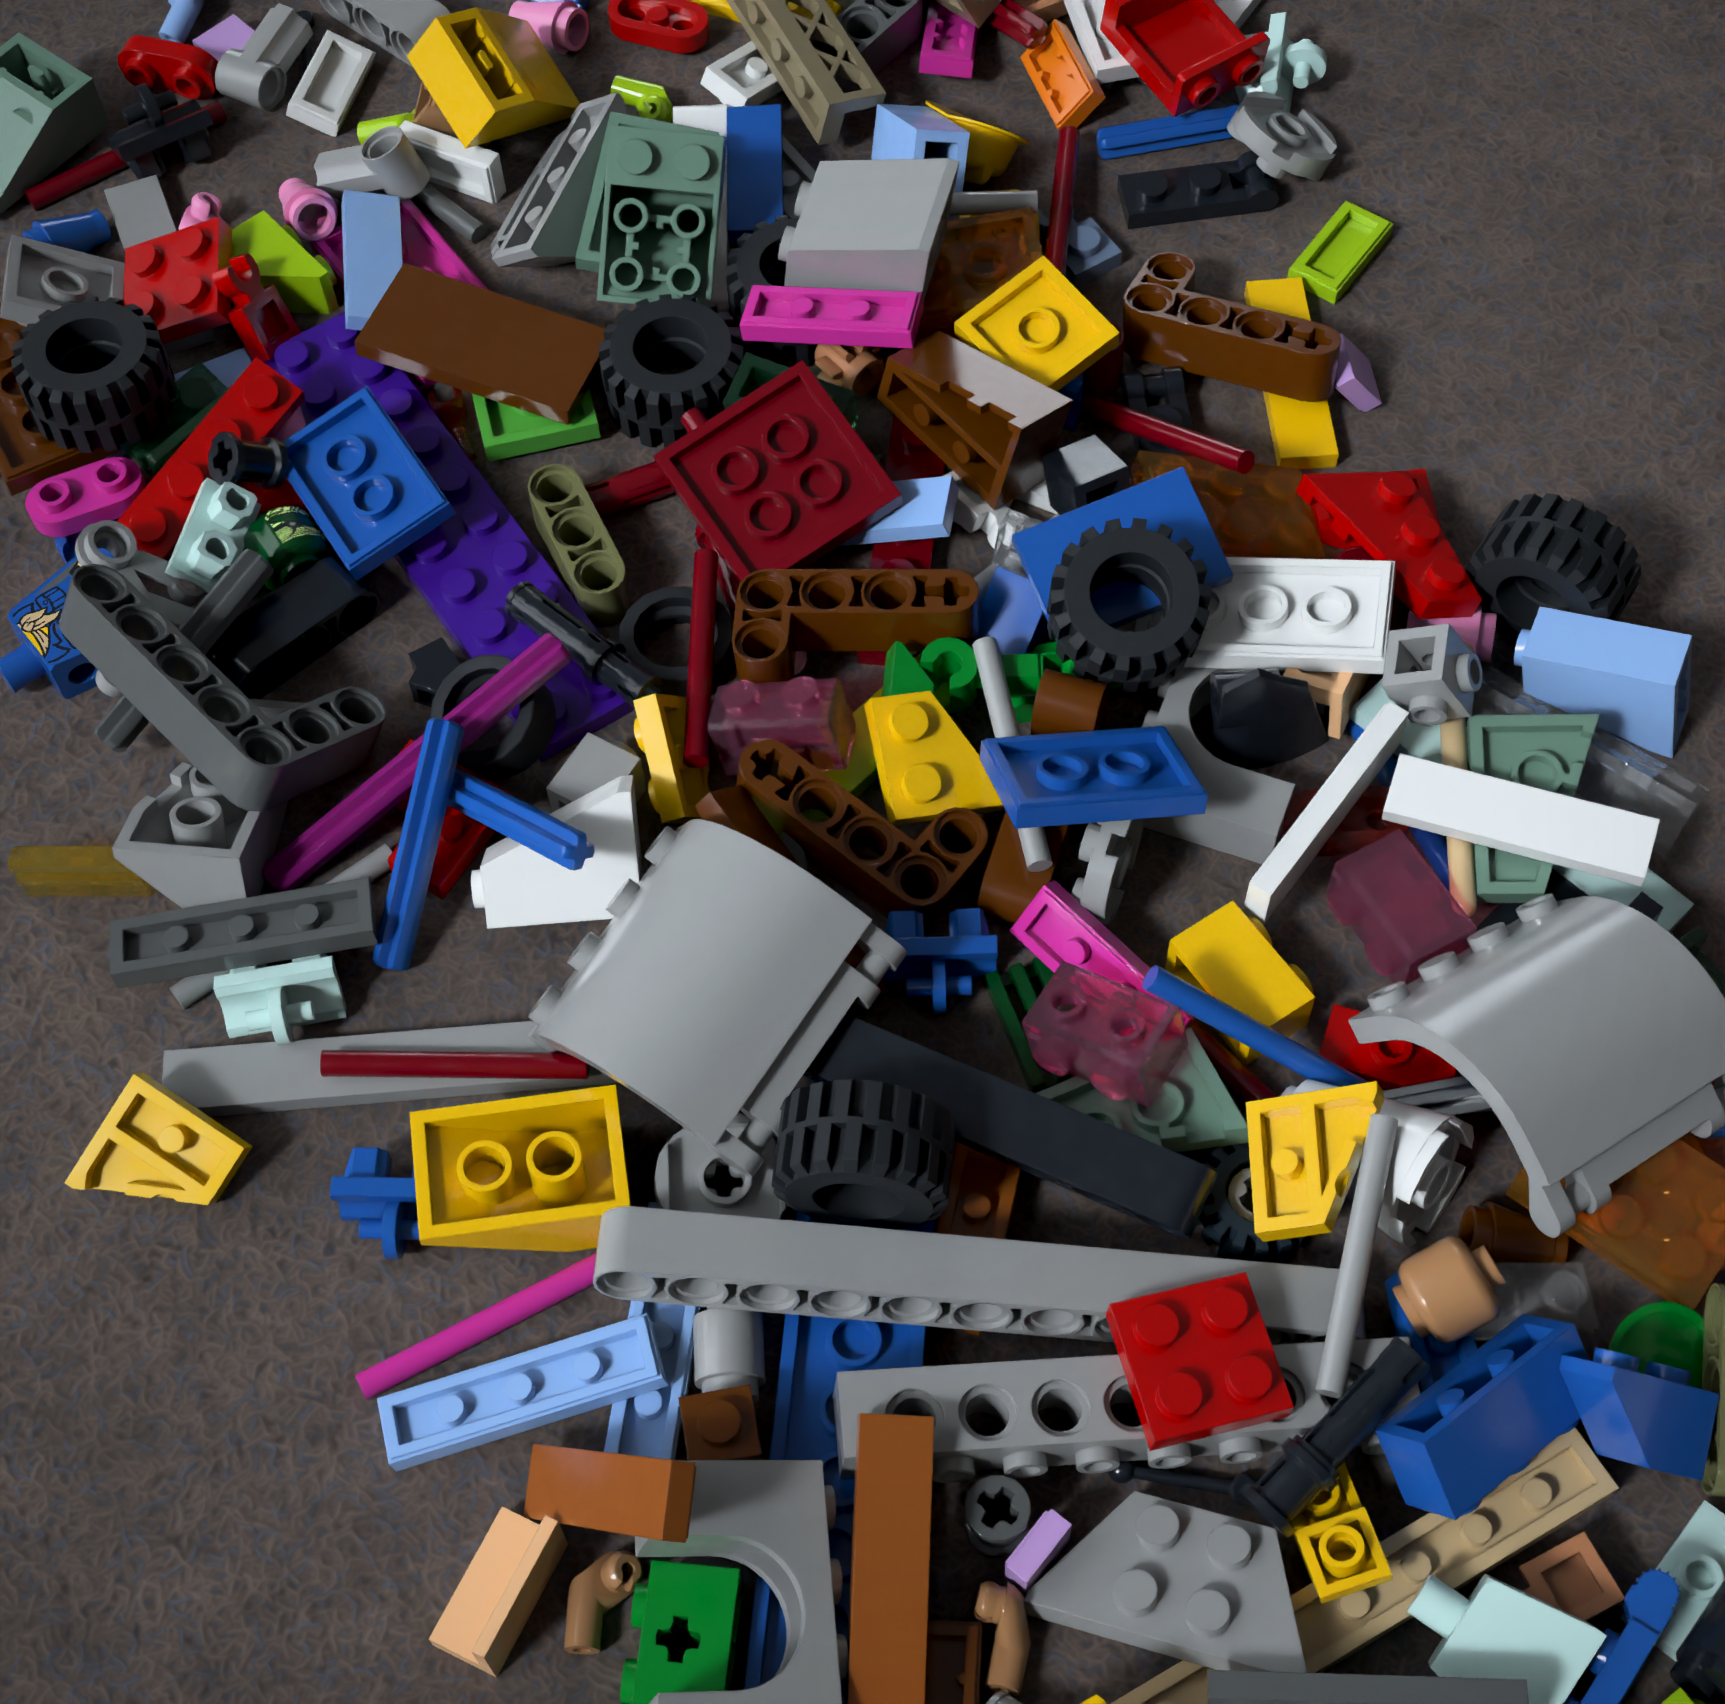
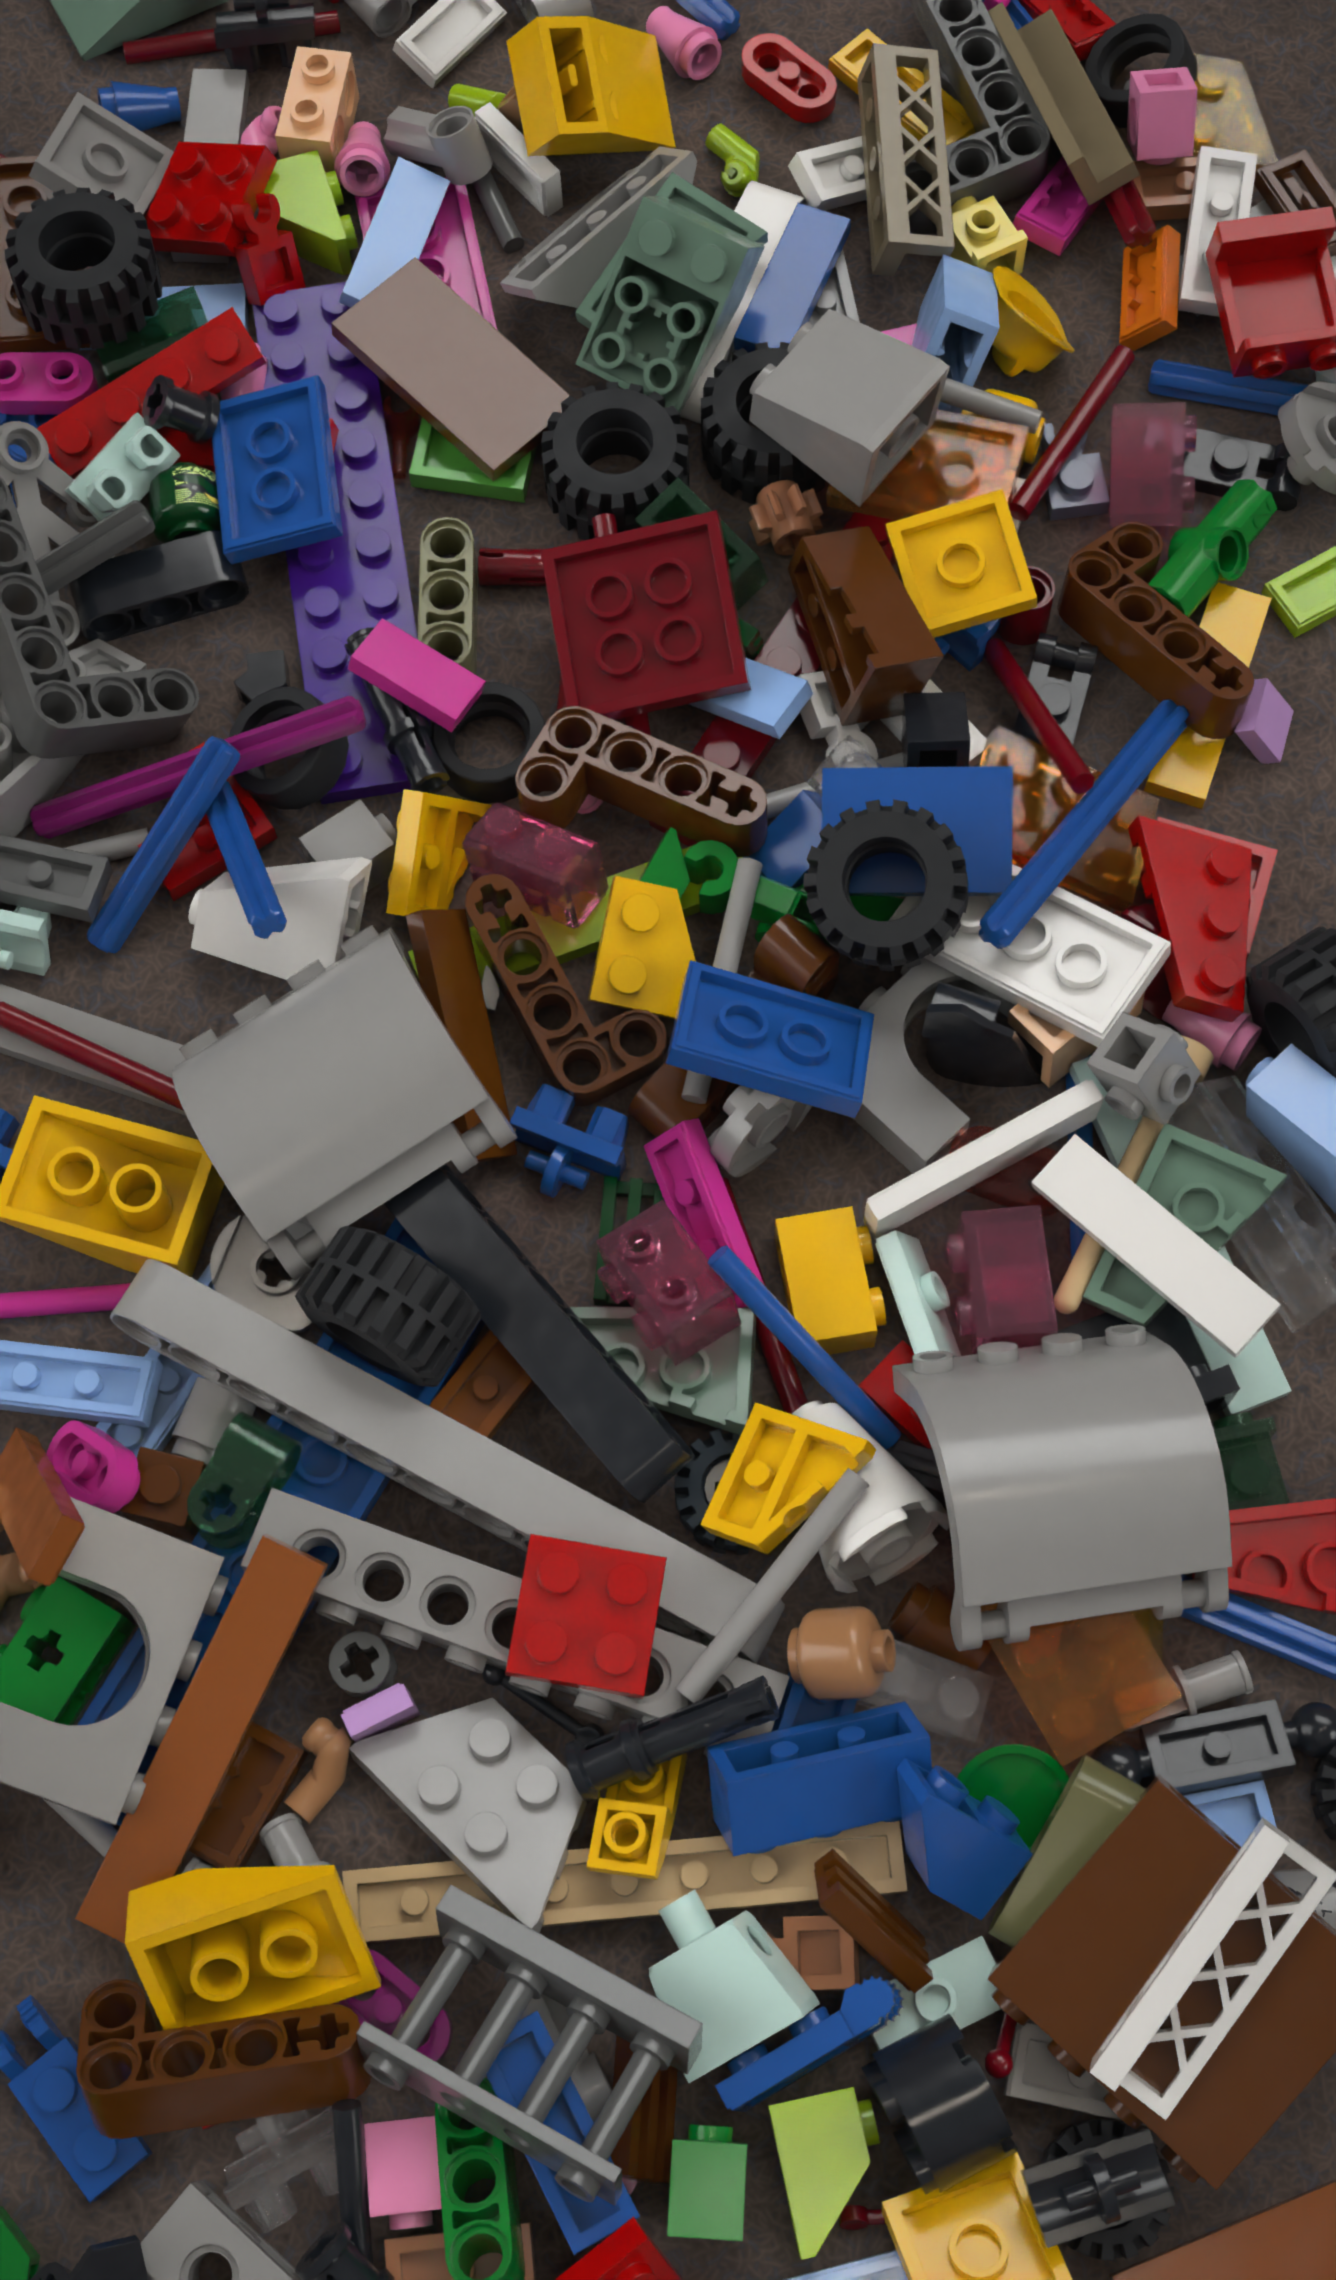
camera: 25 degrees right, 10 degrees up
(242, 173) = (318, 104): none -> light nougat brick
(589, 603) = (416, 675): none -> dark pink tile
(642, 1429) = (94, 1466): none -> dark pink plate
(700, 658) = (495, 766): dark red bar -> none
(794, 1382) = (242, 1471): none -> clear green piece
(832, 316) = (773, 473): dark pink tile -> none
(905, 80) = (986, 235): none -> light yellow brick
(1145, 202) = (1149, 463): none -> clear pink brick
(1235, 249) = (1214, 548): none -> green piece
(1259, 503) = (1082, 825): none -> blue axle
(1329, 955) = (917, 1292): none -> light aqua plate
(1608, 1526) = (872, 1921): none -> reddish brown tile

